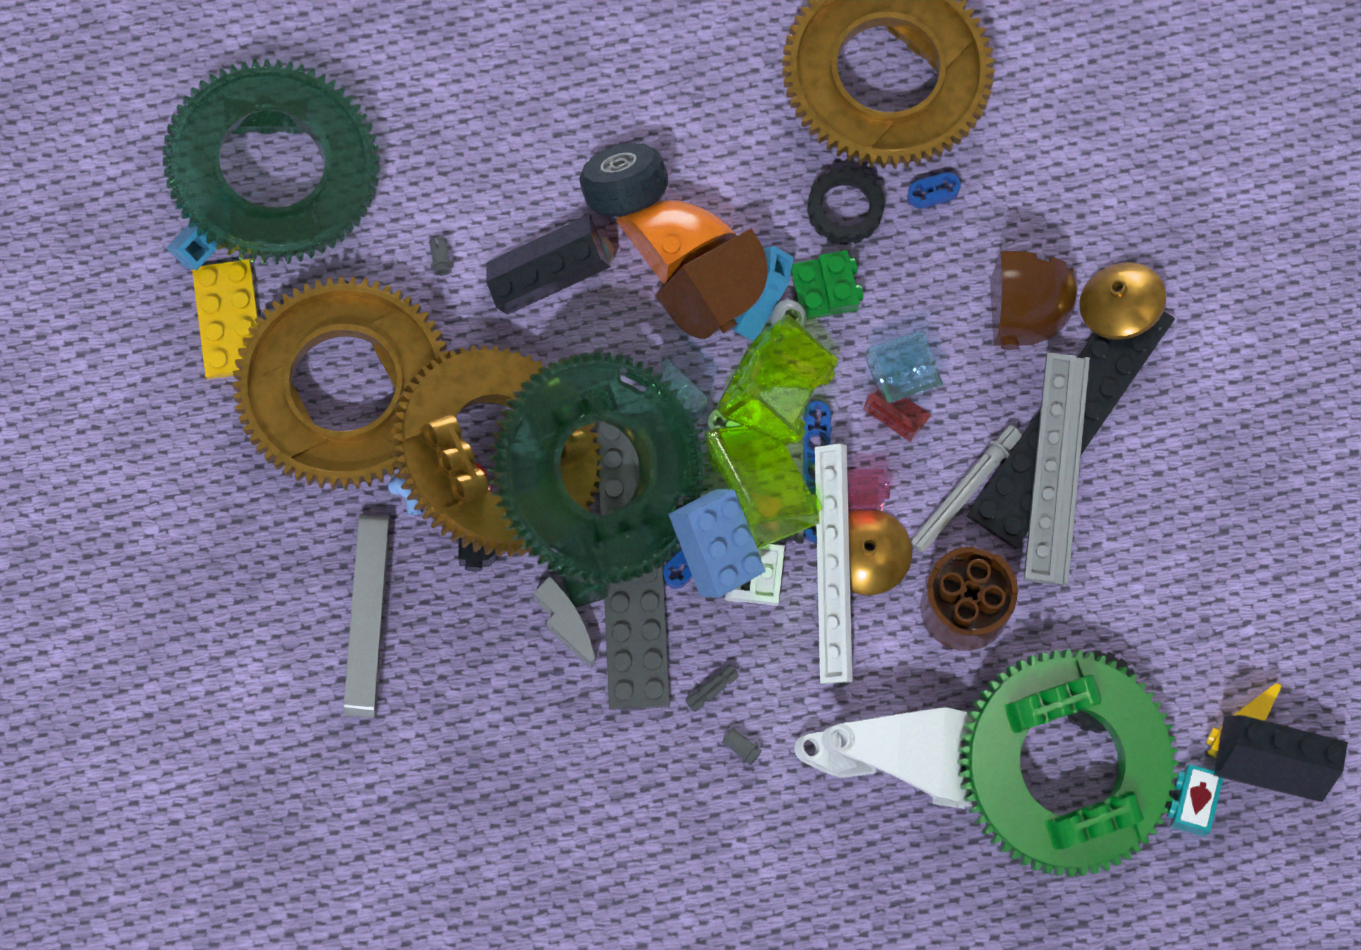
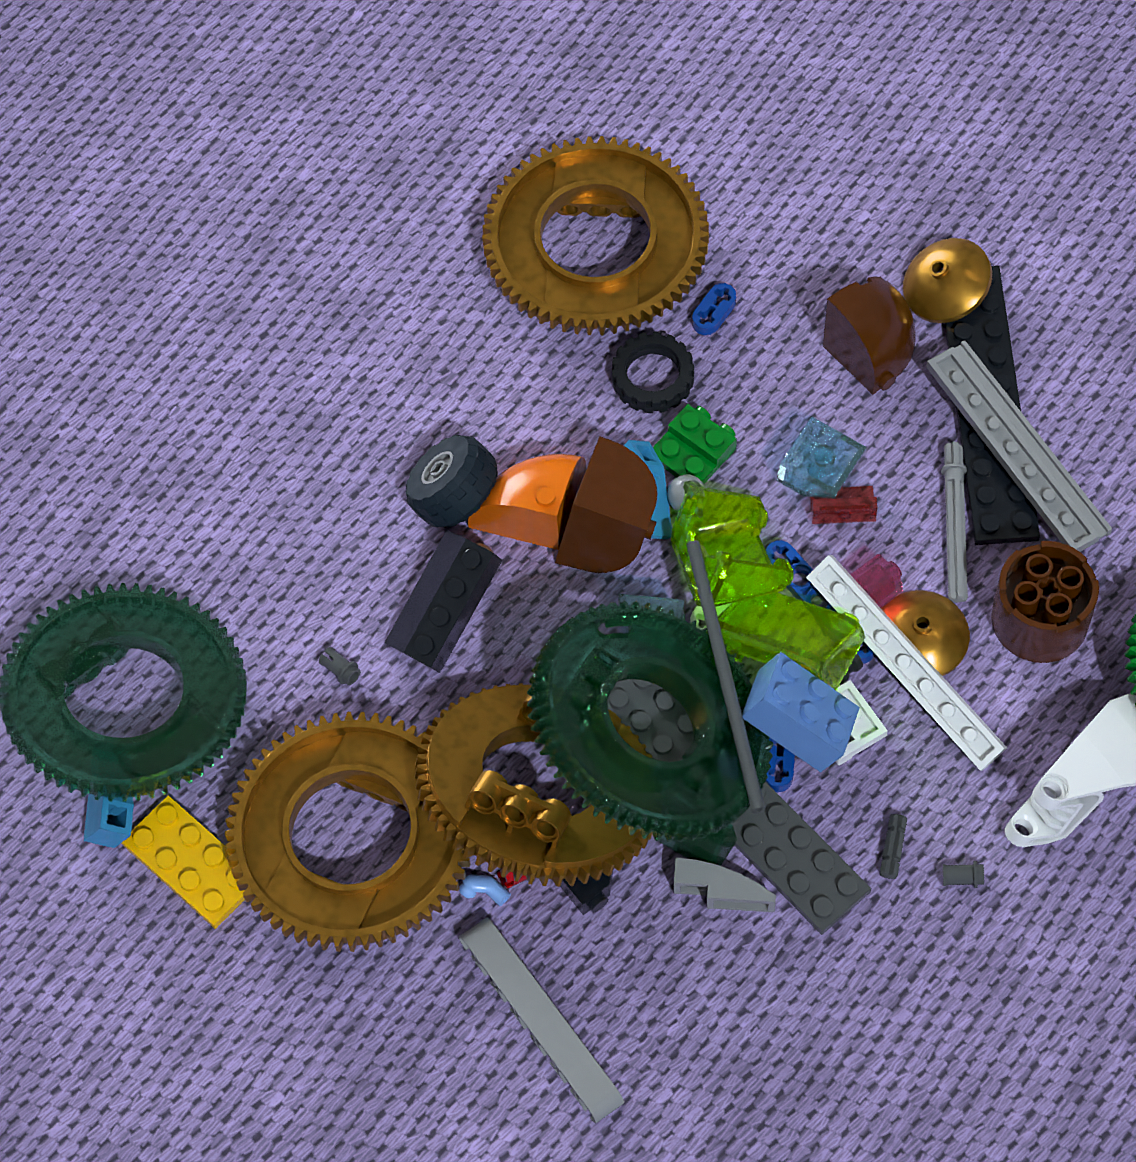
camera: 30 degrees left, 10 degrees down
(682, 476) = (725, 677): none -> dark grey piece

